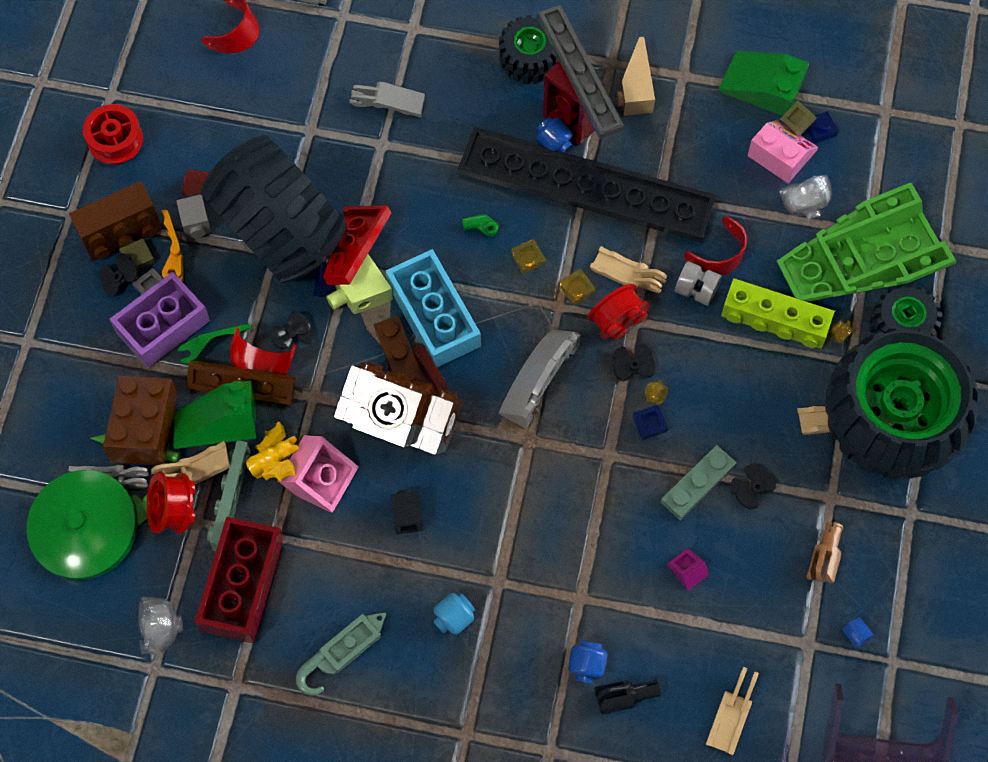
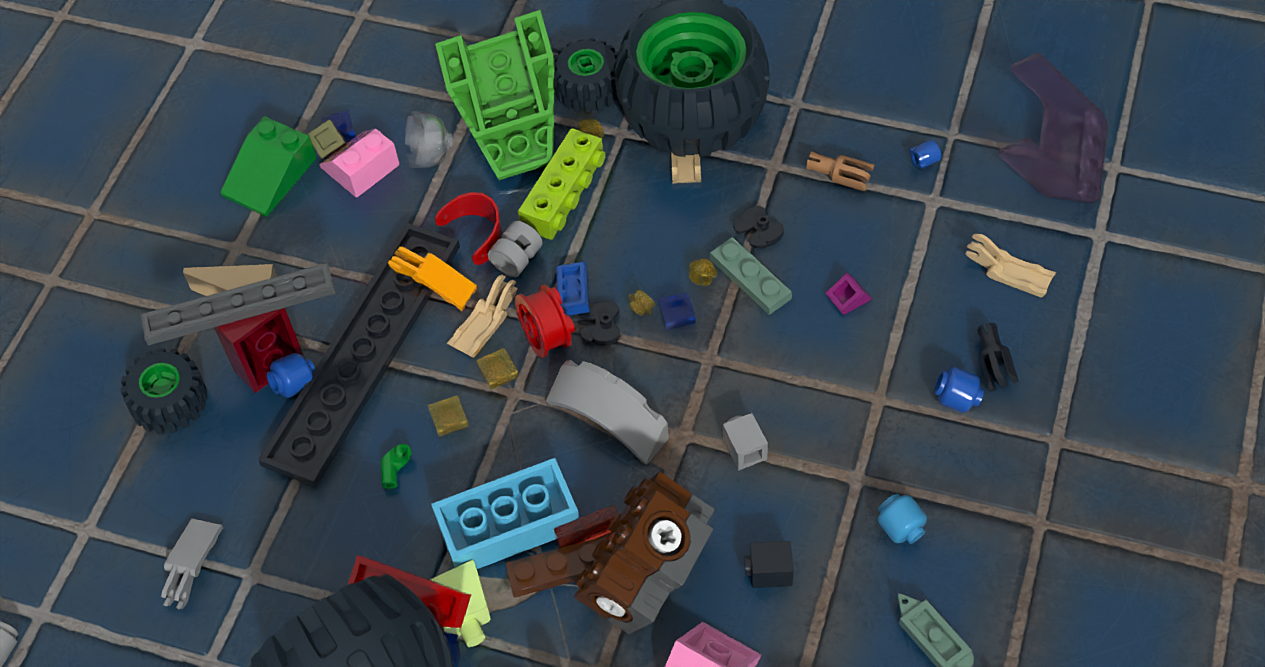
camera: 80 degrees left, 10 degrees down
(521, 485) = (745, 441): none -> light grey brick
(659, 228) = (434, 274): none -> light orange arm
(664, 335) = (573, 288): none -> blue plate
(695, 440) = (702, 272): none -> clear yellow plate

